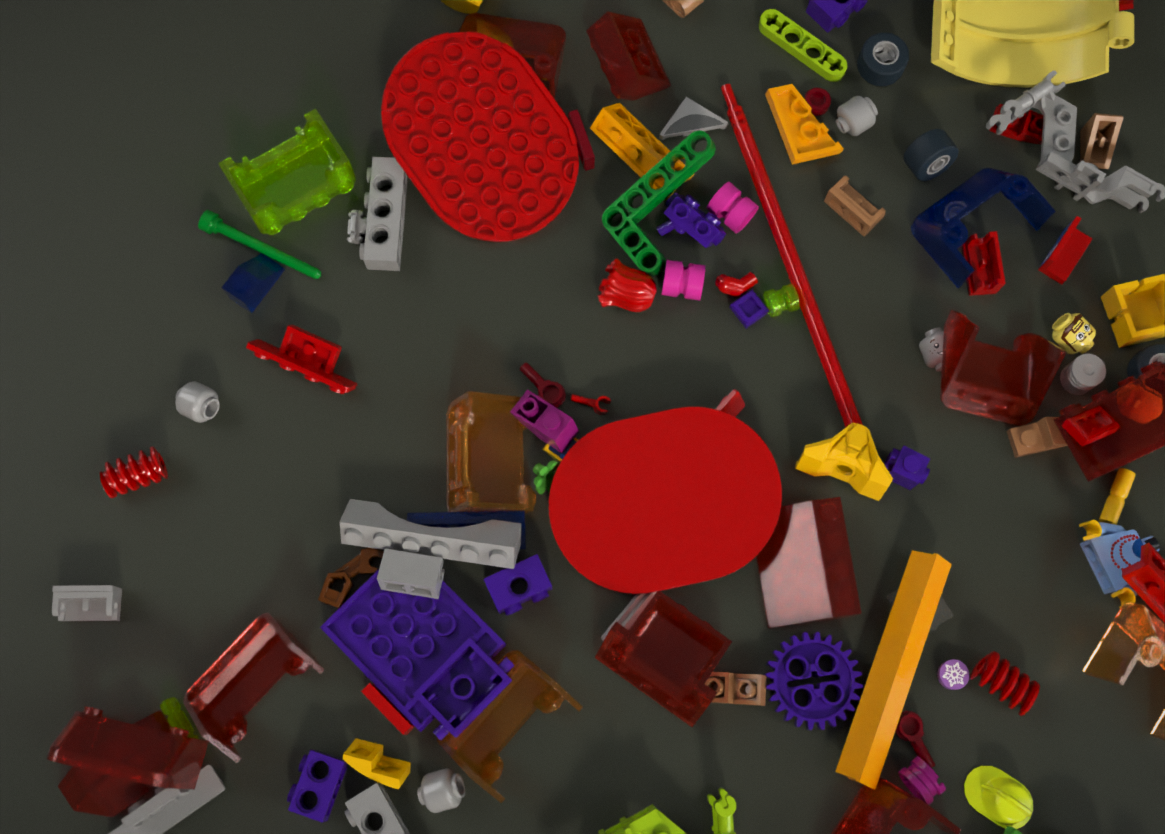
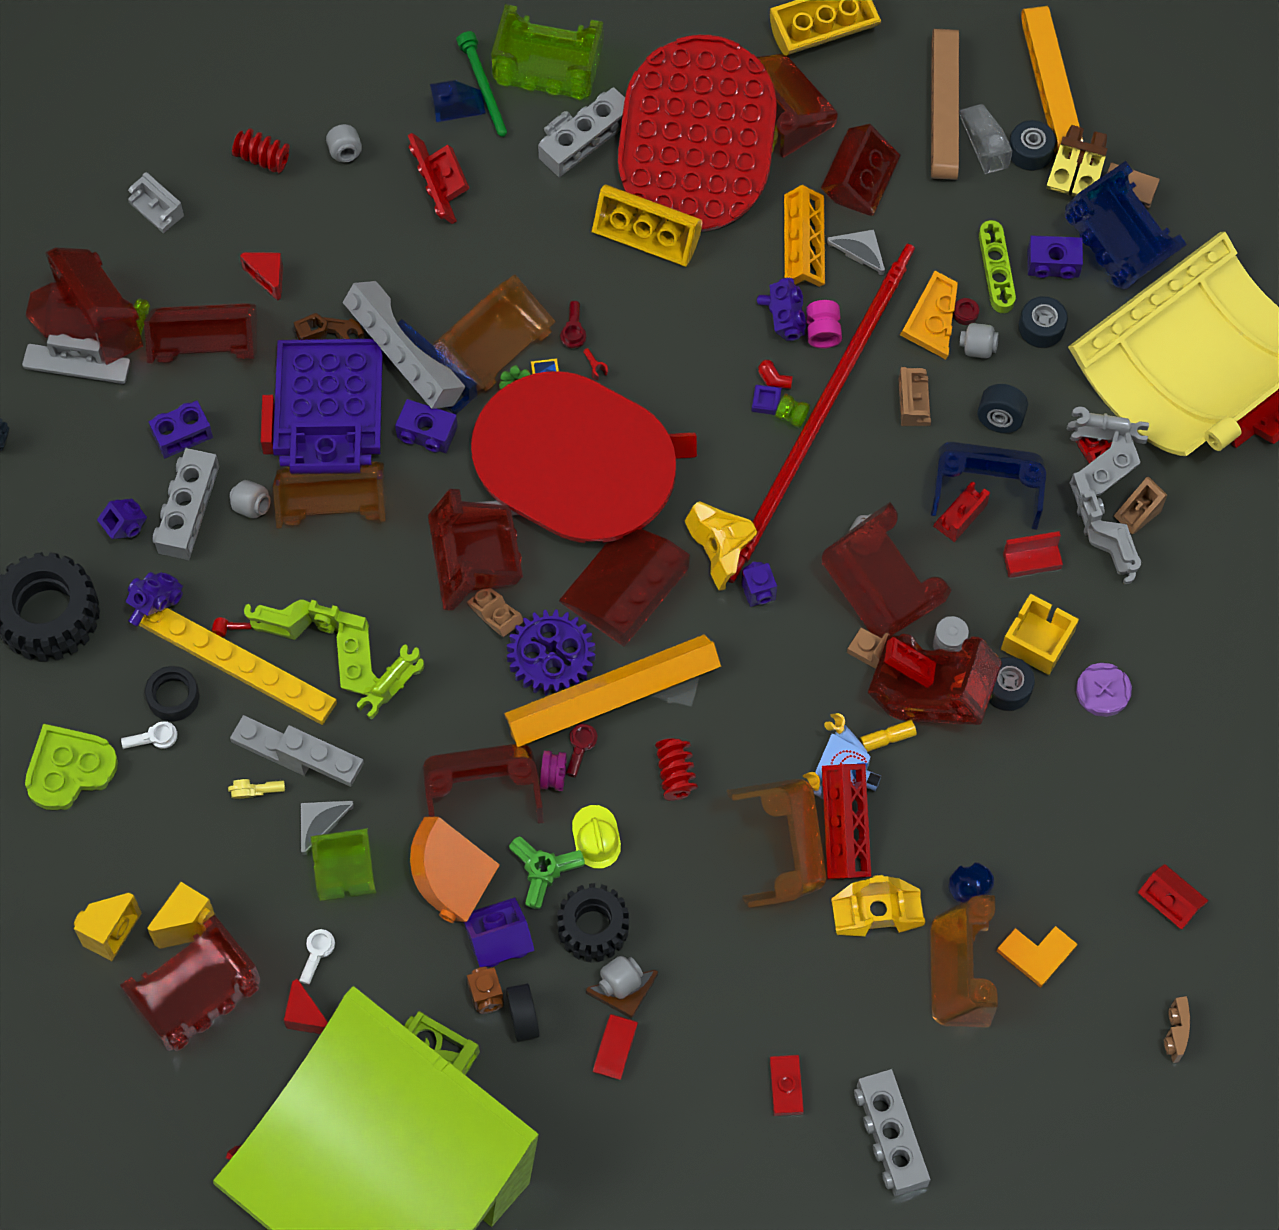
camera: 45 degrees right, 10 degrees down
(246, 573) = (265, 270): none -> red slope
(369, 760) = (226, 446): yellow slope -> none
(411, 573) = (365, 354): light grey hinge -> none
(517, 250) = (646, 225): none -> yellow brick
(545, 421) = (547, 341): magenta slope -> none
(584, 147) = (768, 195): dark red tile -> none
(627, 288) = (694, 311): red piece -> none
(653, 198) = (771, 262): green beam -> none
(683, 280) = (736, 337): dark pink wheel -> none
(953, 674) = (647, 736): medium lavender tile -> none
(1073, 333) = (975, 608): light yellow head -> none

